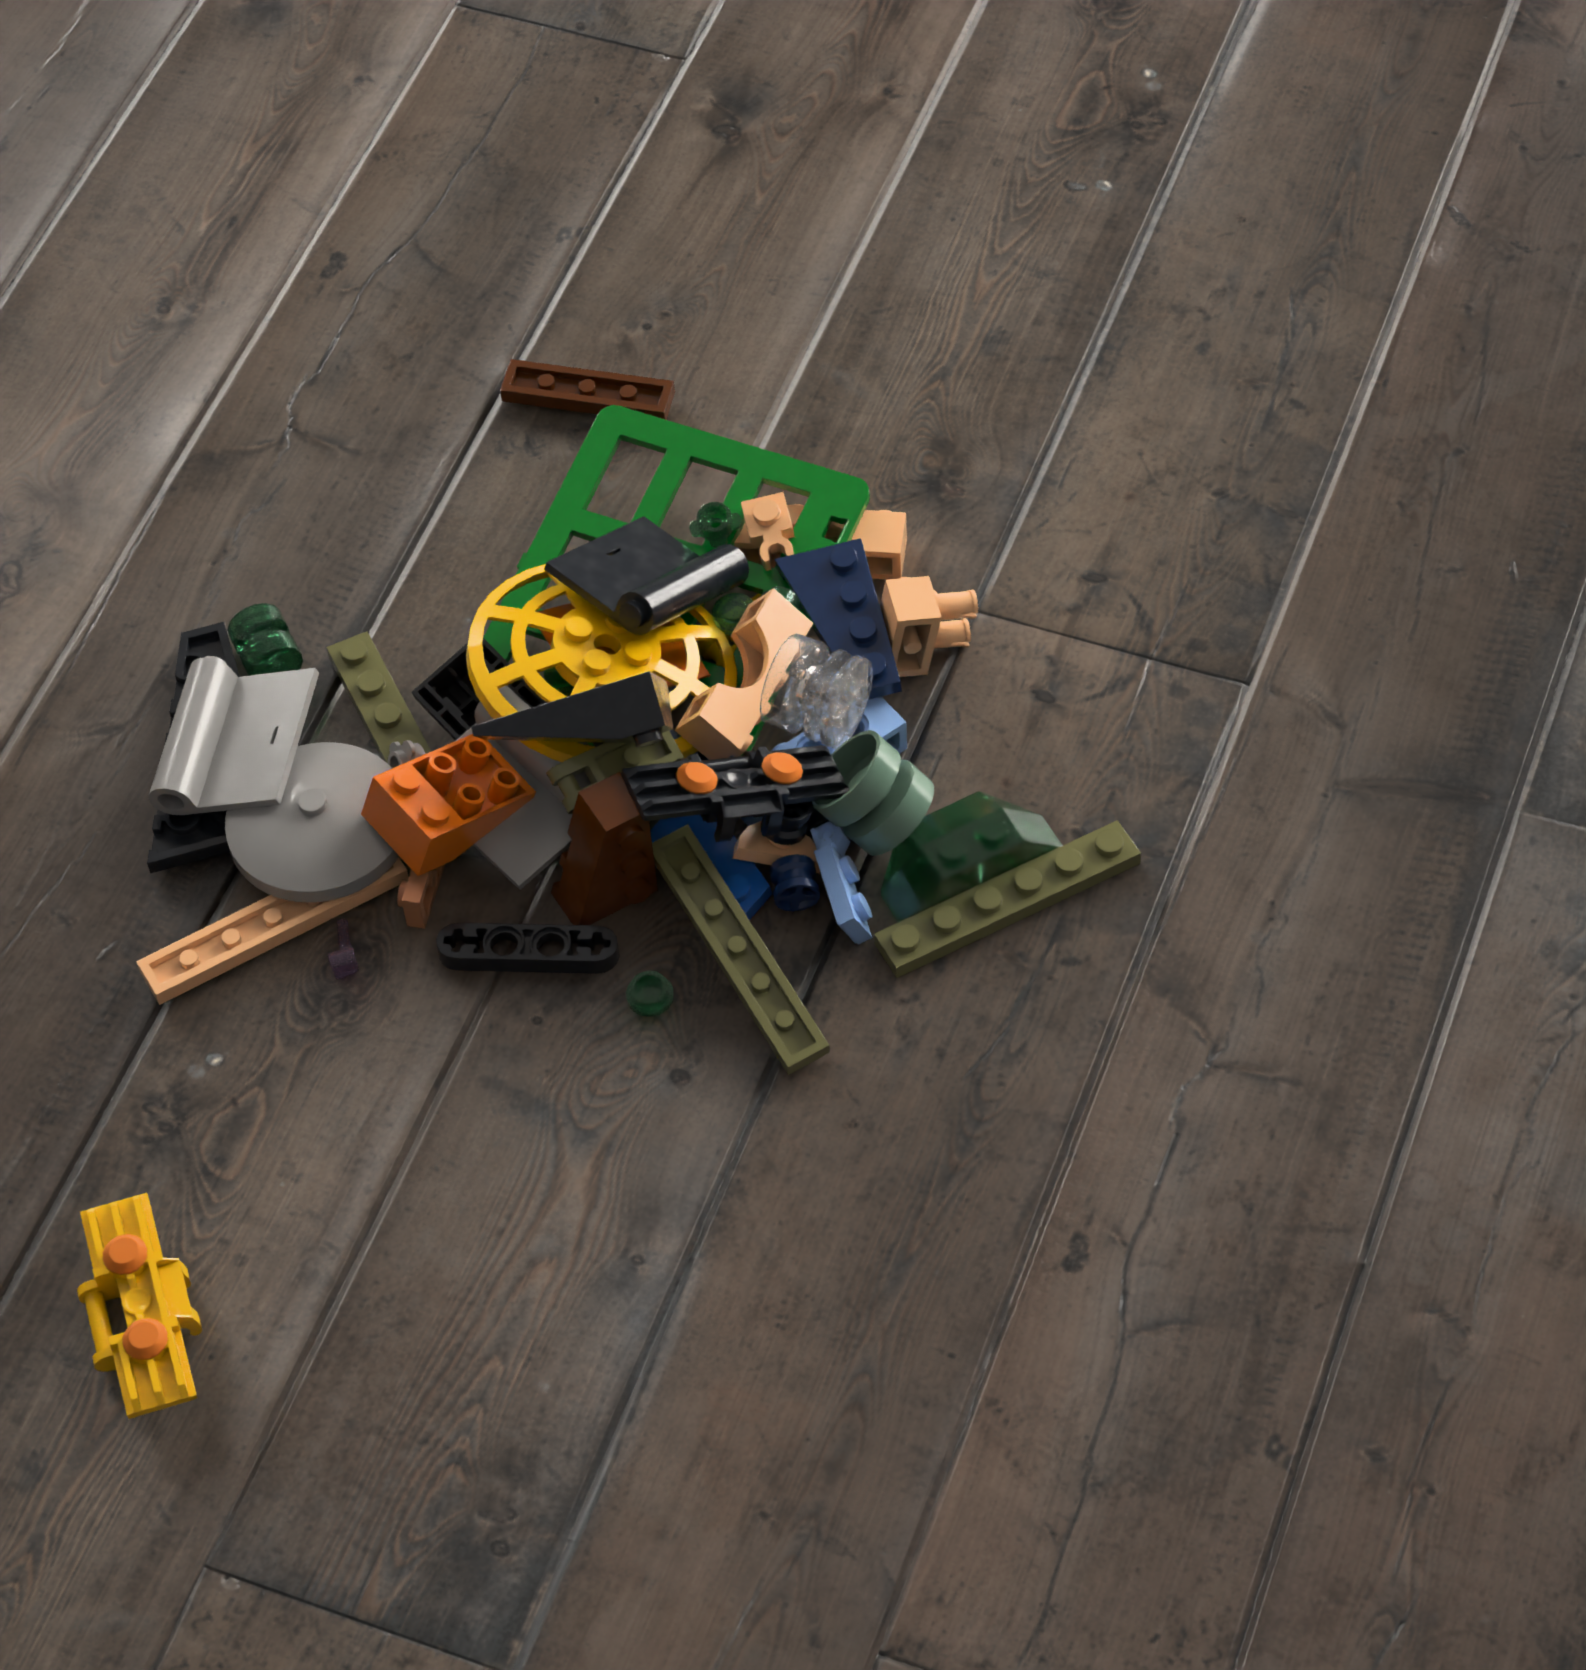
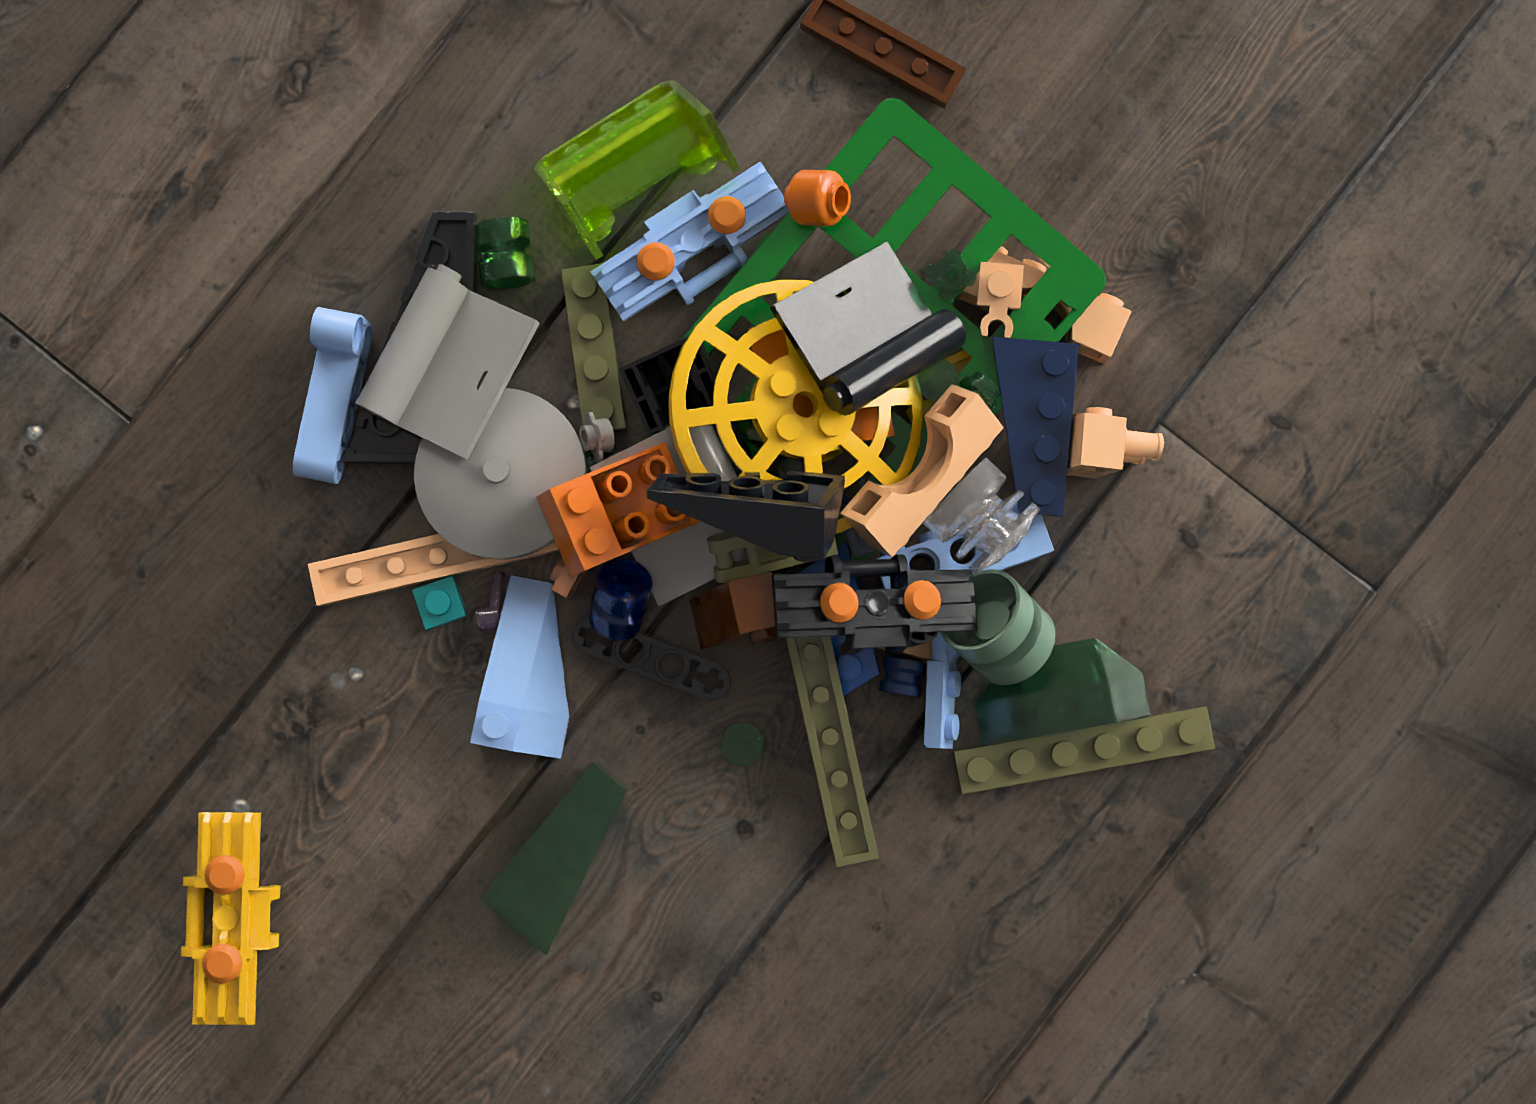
camera: 15 degrees right, 30 degrees up
(120, 804) = (334, 387): none -> light blue beam
(287, 965) = (440, 603): none -> teal plate
(376, 531) = (628, 155): none -> clear neon green windscreen
(399, 1009) = (524, 684): none -> light blue wedge
(439, 575) = (682, 231): none -> light blue piece
(476, 895) = (620, 599): none -> clear blue wheel
(481, 1152) = (551, 867): none -> clear green wedge
(562, 496) = (817, 197): none -> orange head

